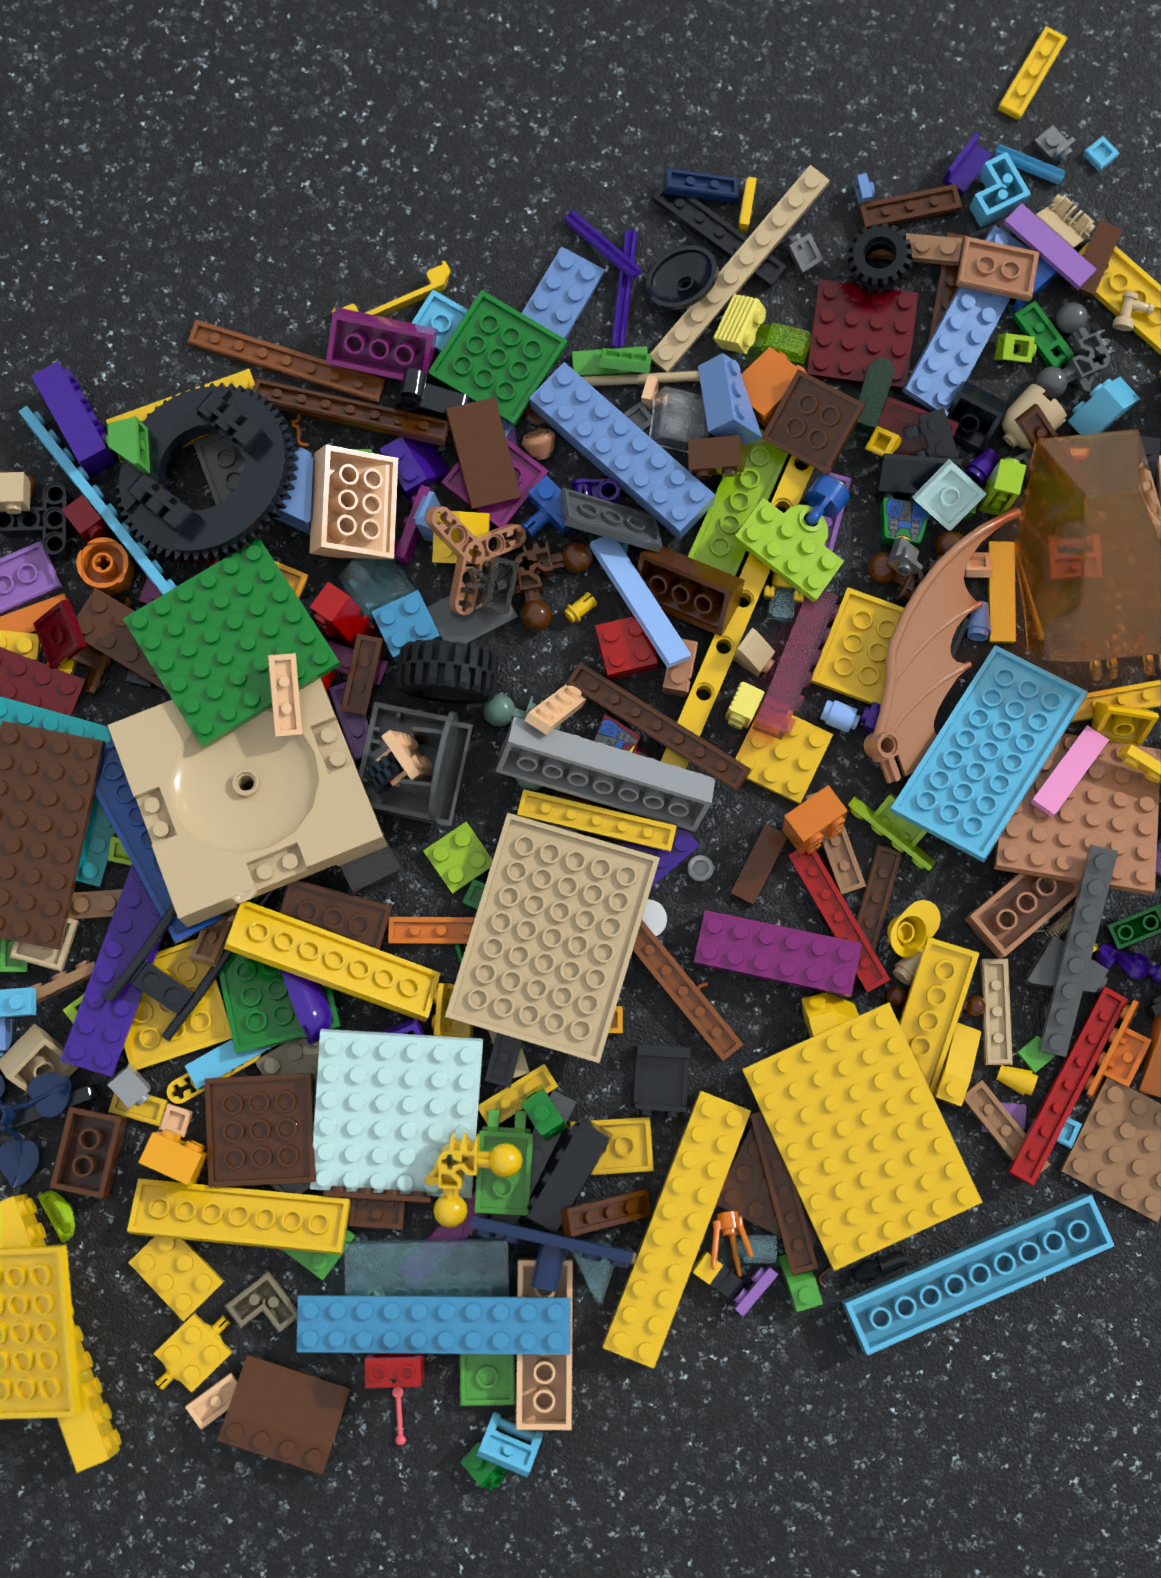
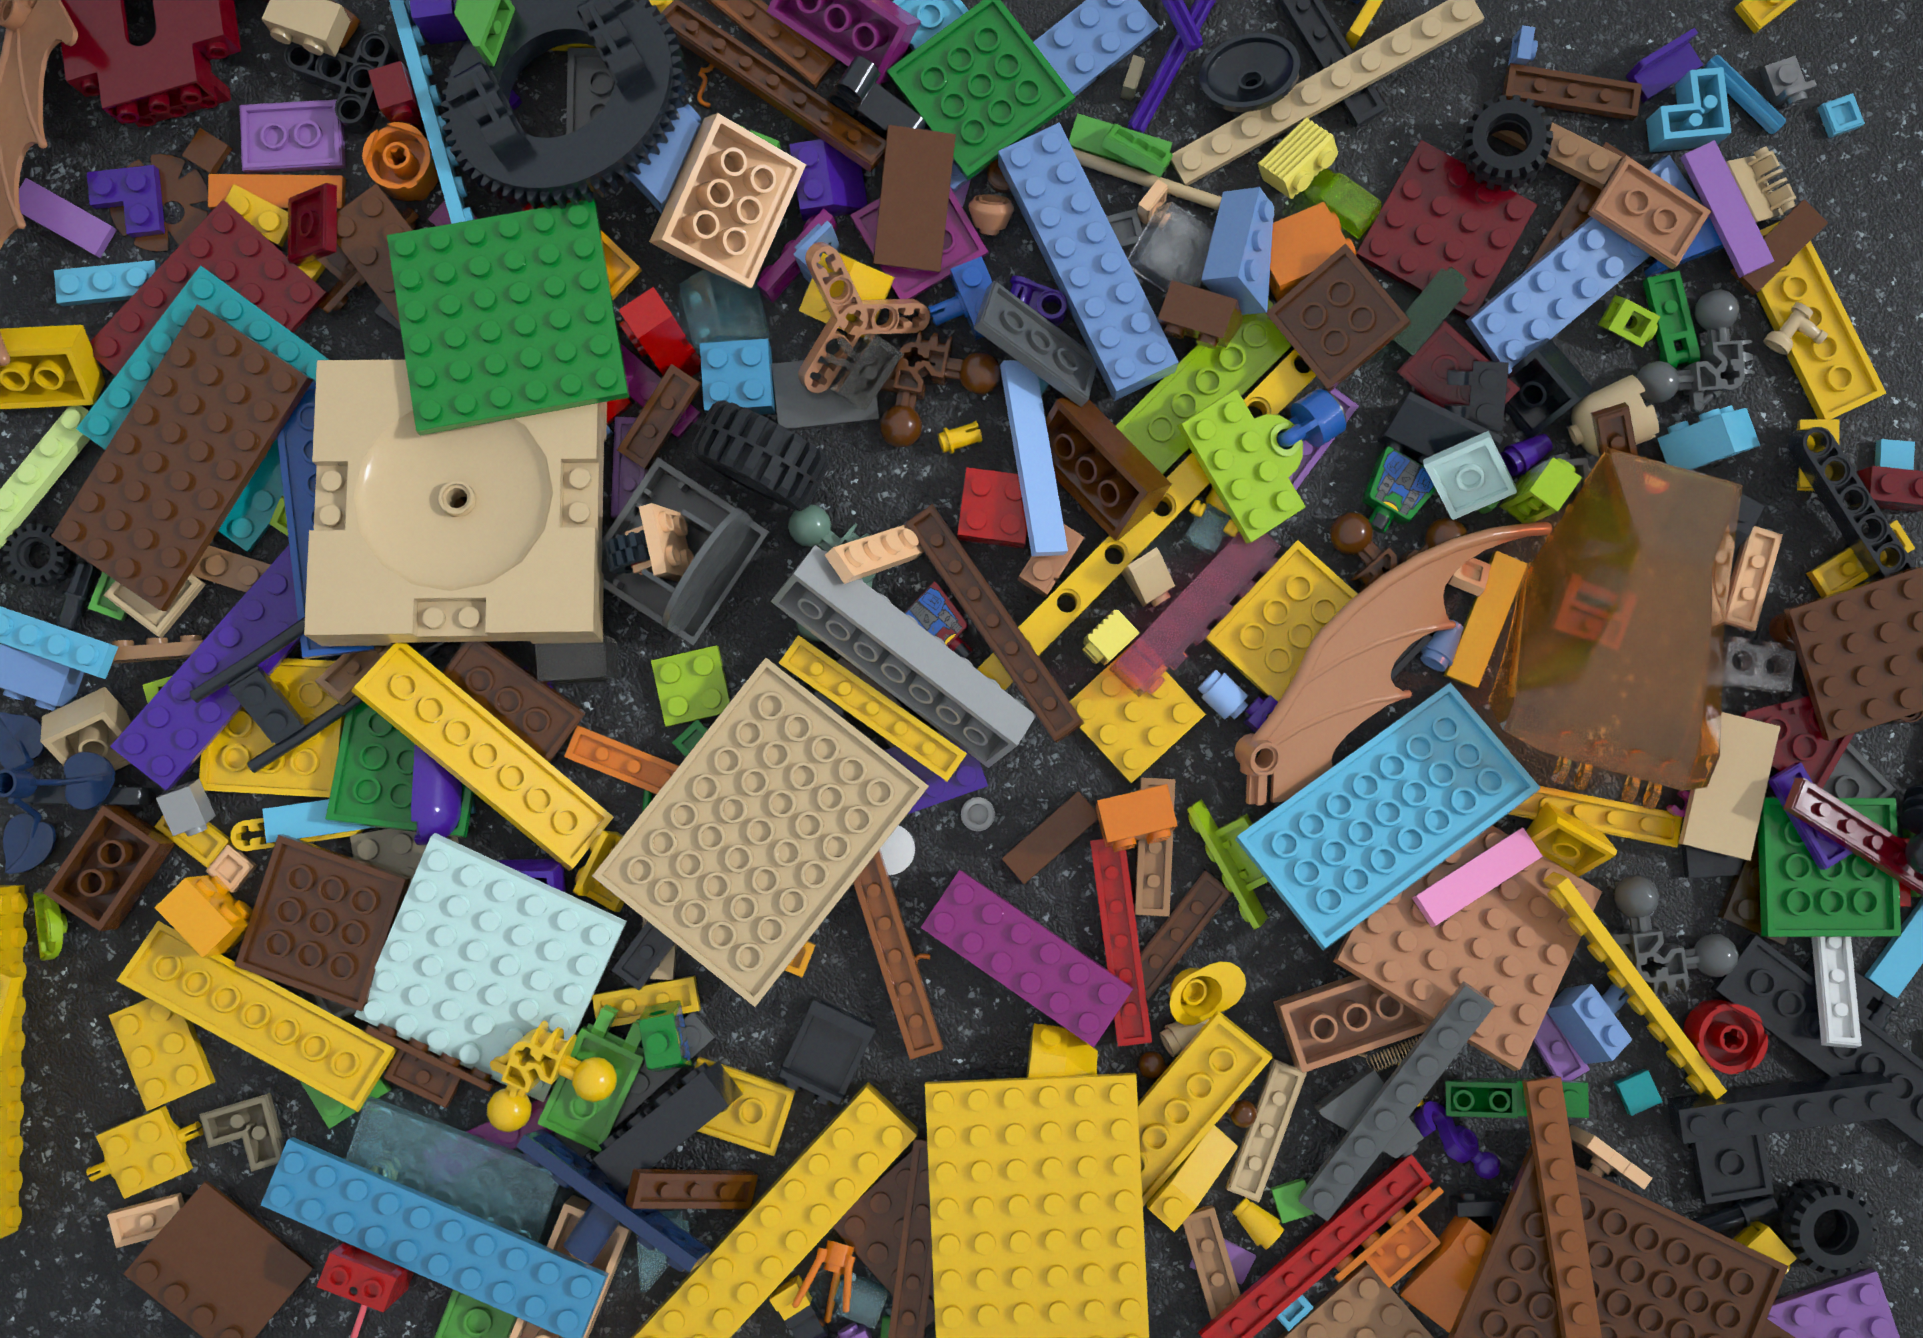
camera: 20 degrees right, 5 degrees up
(285, 694) = (541, 408): light nougat plate -> none
(601, 312) = (1132, 78): none -> dark tan tile
(802, 250) = (1415, 95): flat silver bracket -> none
(883, 442) = (1415, 376): yellow slope -> none
(904, 557) = (1381, 532): flat silver bracket -> none

